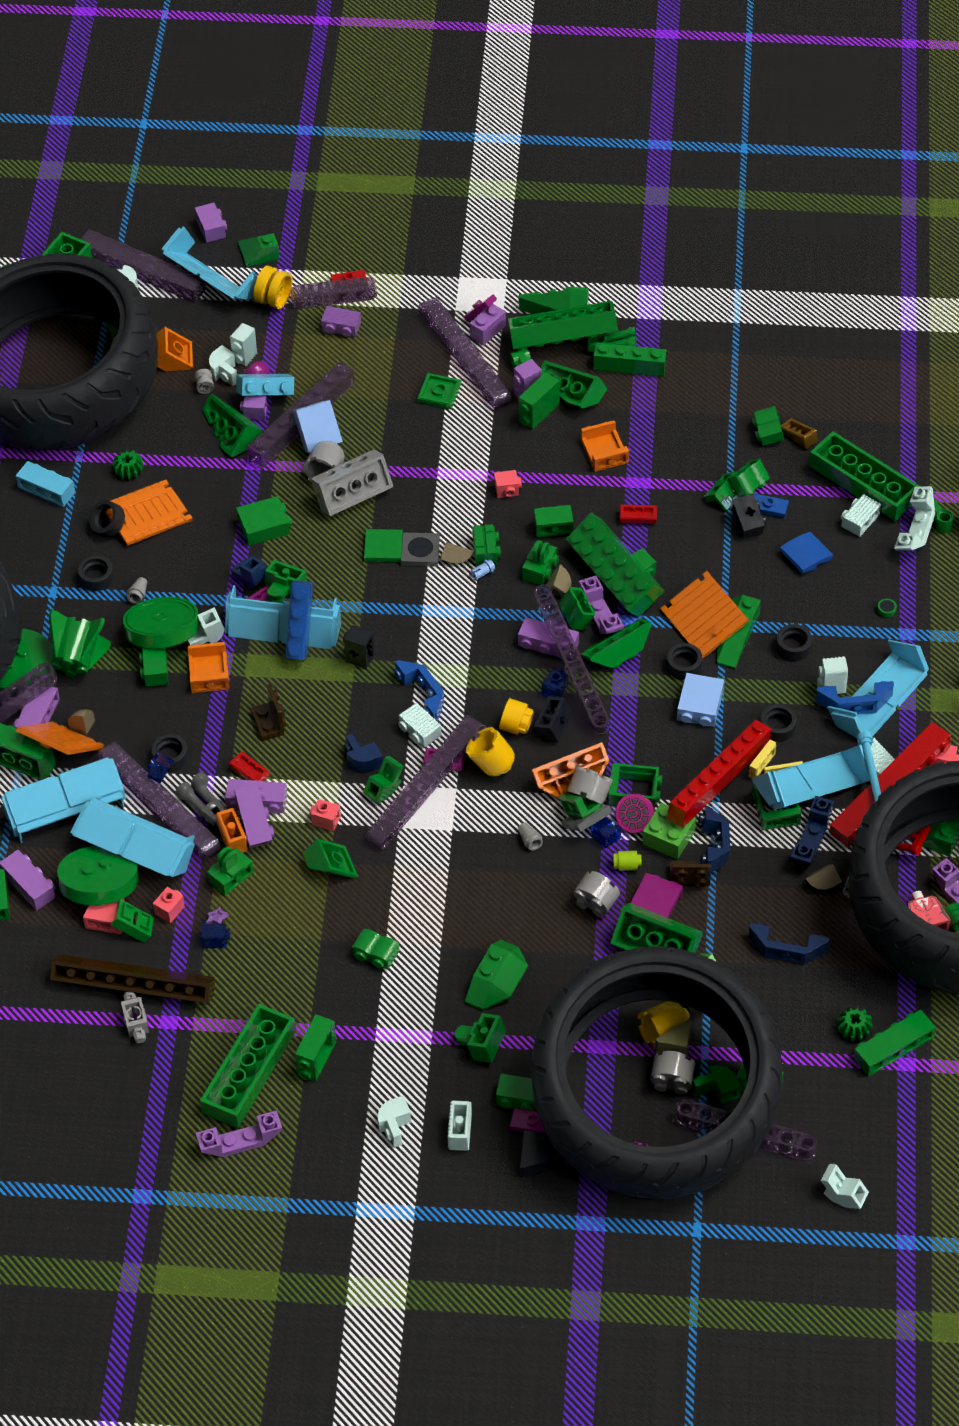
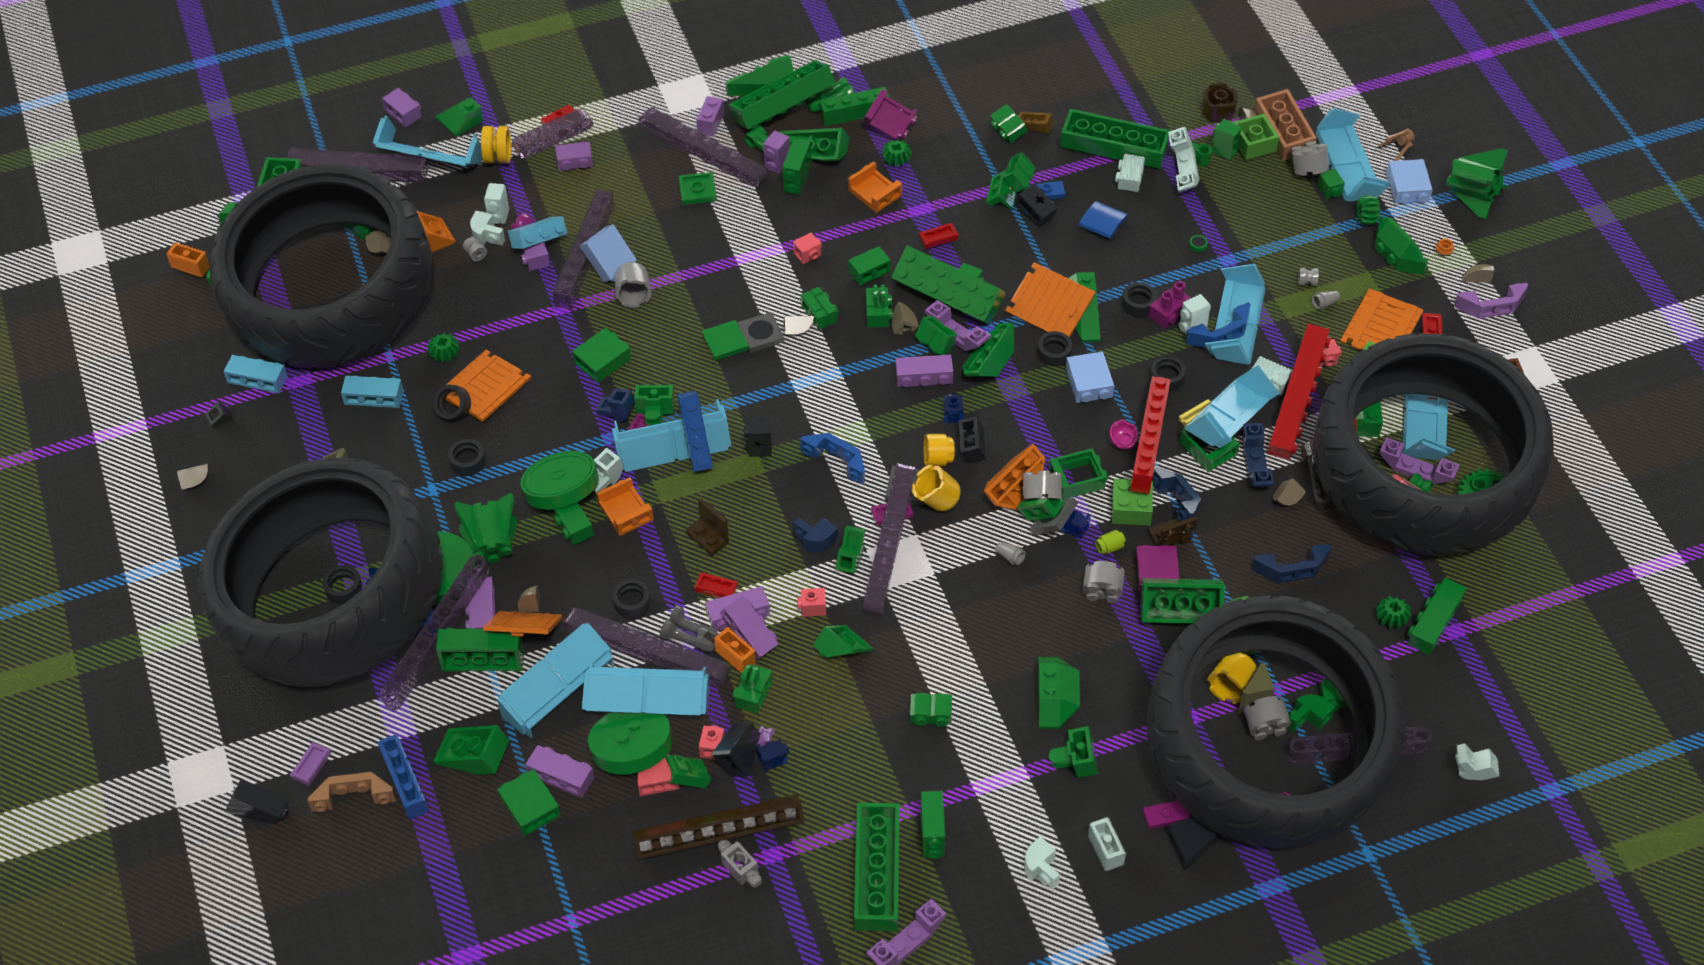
camera: 25 degrees left, 0 degrees up
(137, 591) = (516, 460): light grey cone -> none
(159, 767) = (633, 615): clear blue brick -> none
(185, 918) = (738, 749): none -> black slope
(230, 426) = (526, 283): green wedge -> none
(352, 482) = (668, 292): light grey brick -> none
(419, 725) = (852, 488): light aqua brick -> none
(479, 307) = (696, 103): magenta plate -> none
(483, 569) = (831, 327): light blue pin -> none
(515, 1093) = (1139, 791): green brick -> none
(572, 667) = (963, 388): clear purple beam -> none
(634, 812) = (1094, 497): tile -> none
(644, 419) = (896, 153): none -> green gear
(655, 381) = (889, 117): none -> magenta panel
(696, 762) = (1123, 435): none -> dark pink hair
(762, 759) = (1174, 410): light yellow tile -> none
(811, 657) = (1168, 307): none -> magenta brick
(865, 739) = (1258, 359): medium azure piece -> none

